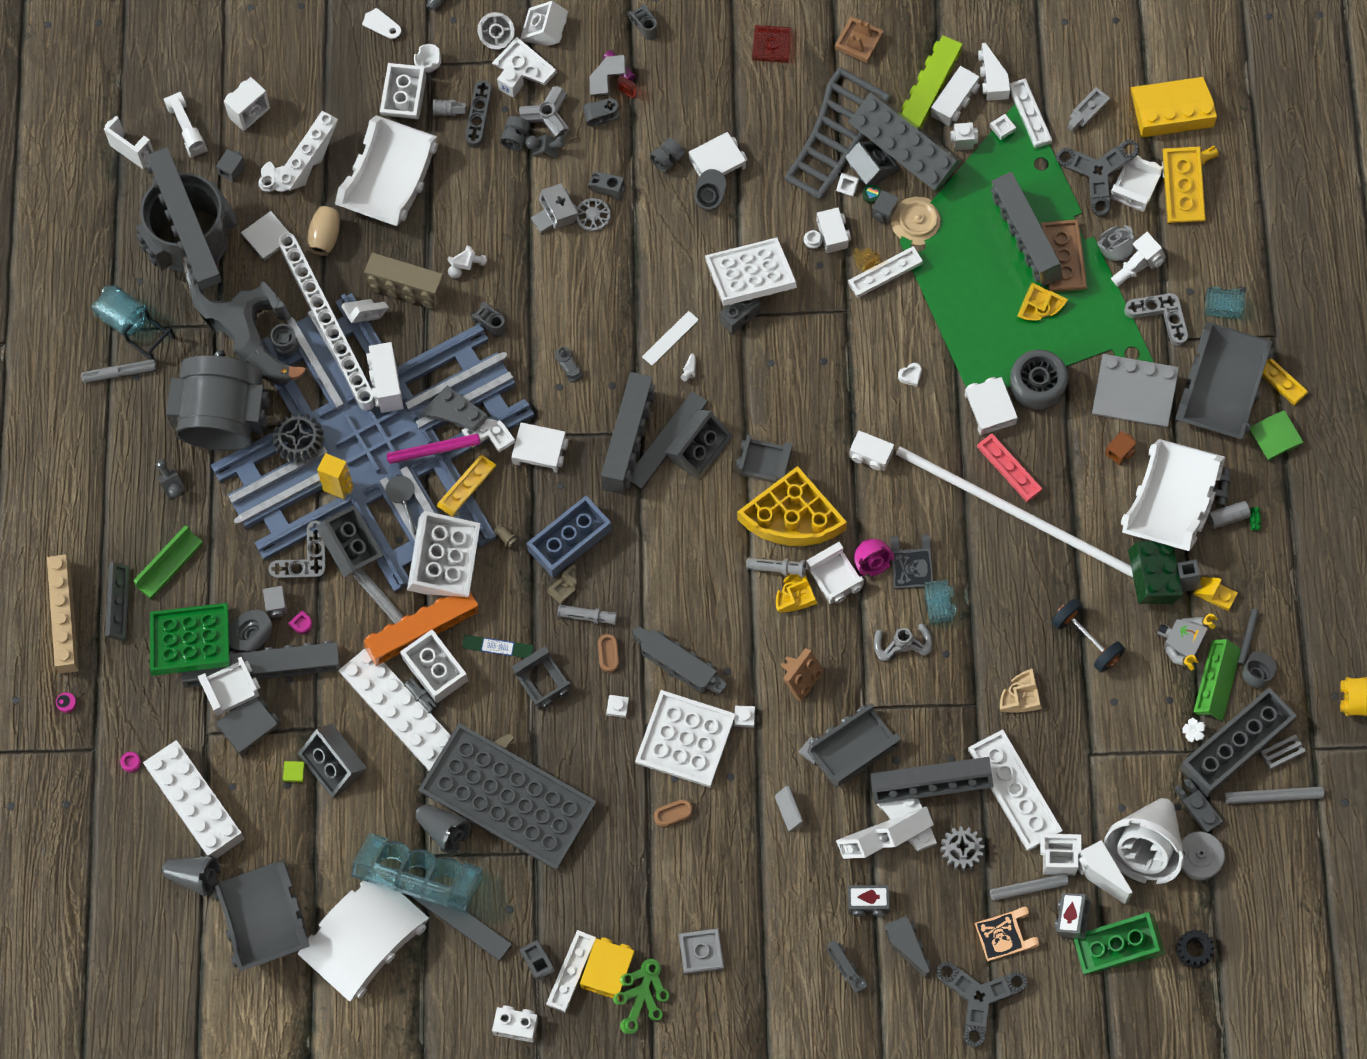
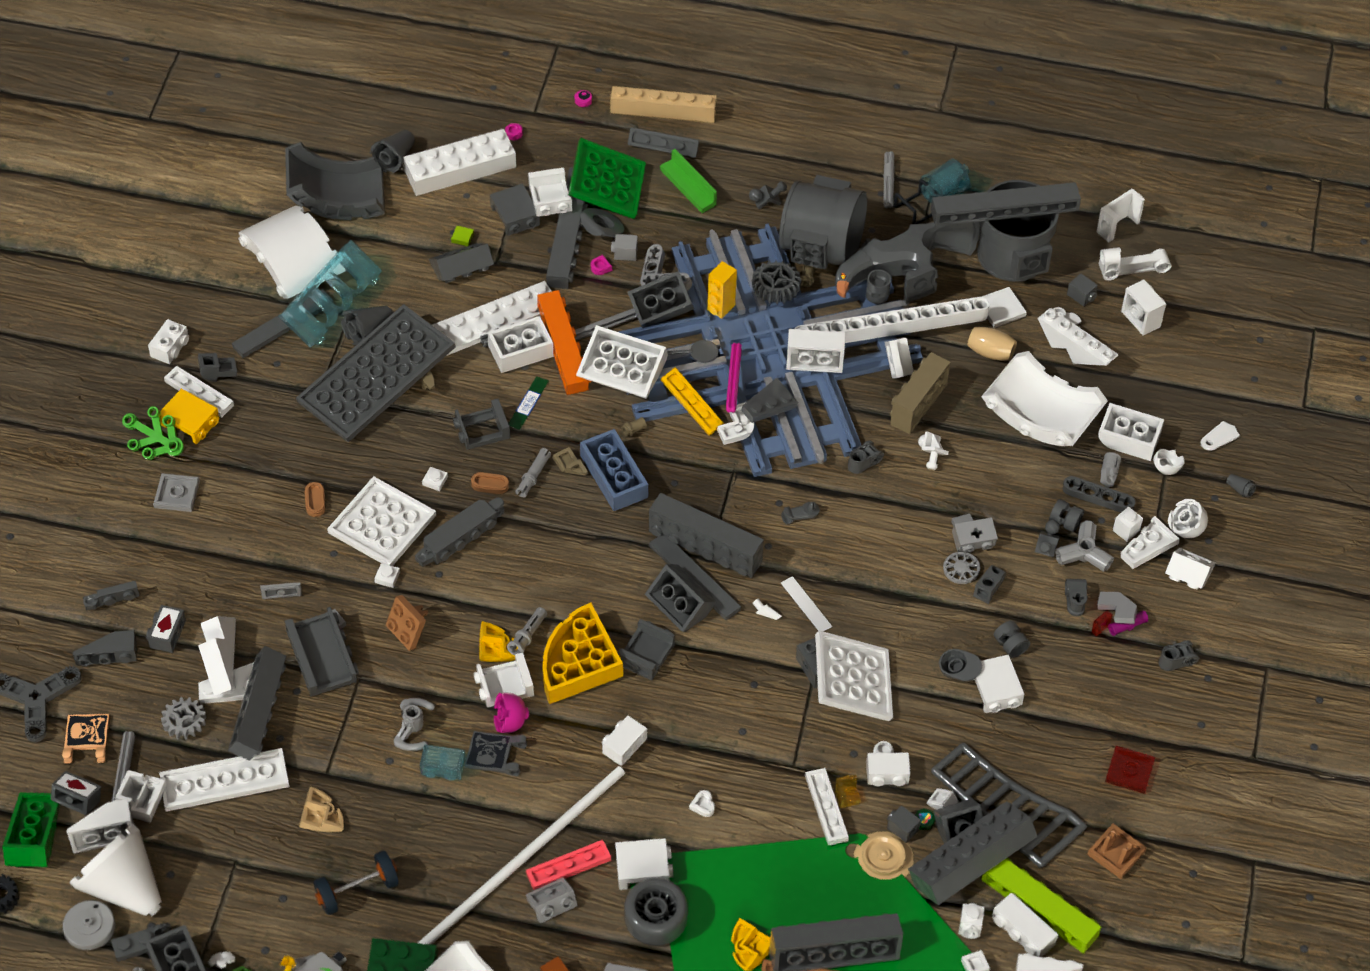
camera: 100 degrees right, 15 degrees down
(539, 446) = (715, 467): white panel -> none
(1046, 472) = (552, 899): none -> light grey bracket

